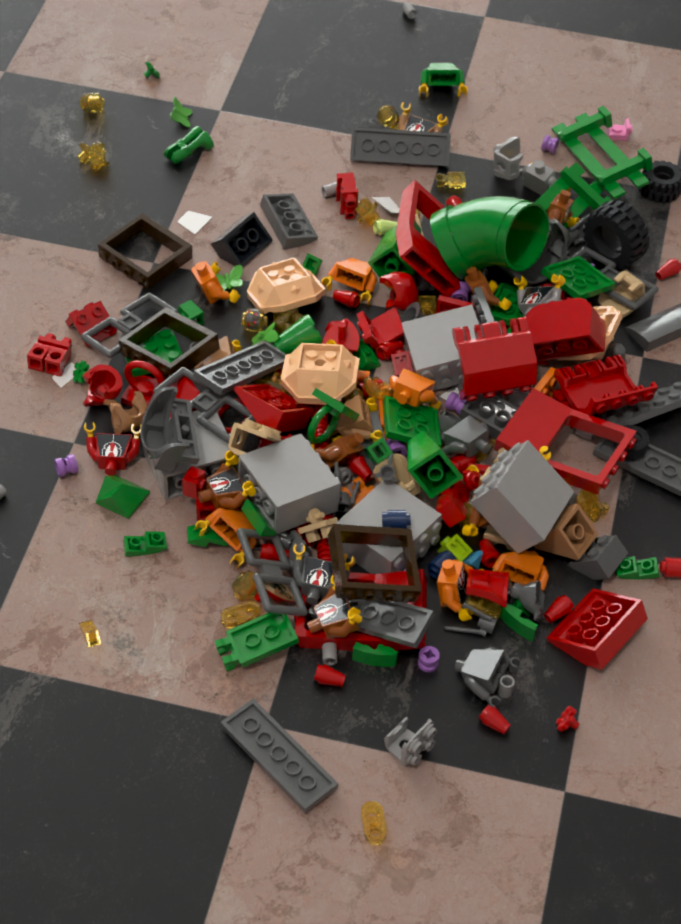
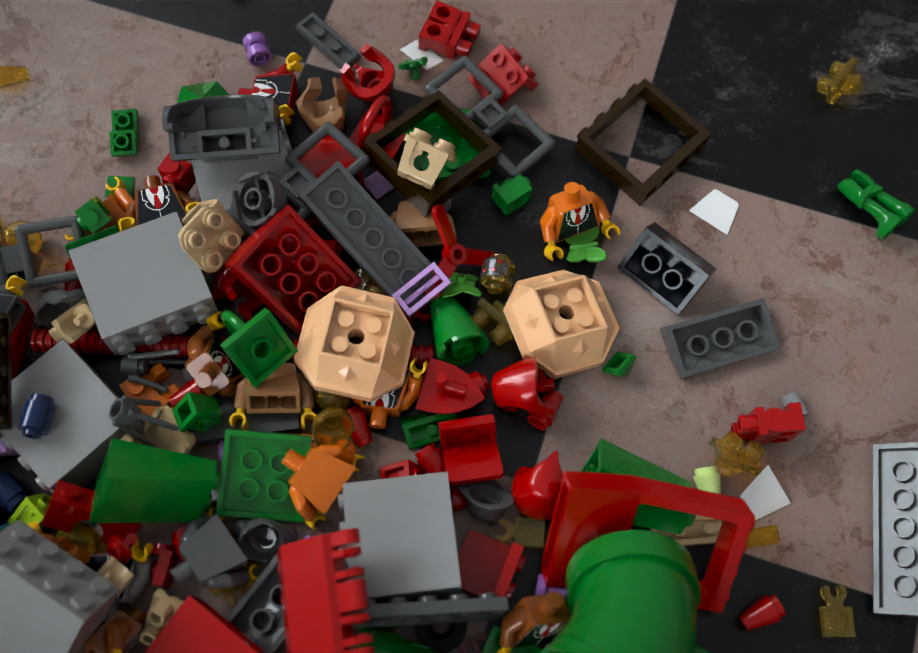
camera: 95 degrees right, 20 degrees up
(55, 428) = (327, 41): none -> dark grey tile
(185, 322) = (438, 155): none -> tan piece
(226, 410) = (258, 198): none -> dark grey cylinder
(238, 514) = (93, 215): none -> green brick
(249, 335) = (462, 254): none -> red piece
(274, 342) = (439, 275): none -> lavender tile
(337, 298) = (519, 386): none -> red piece
(354, 274) = (586, 421): orange torso -> none

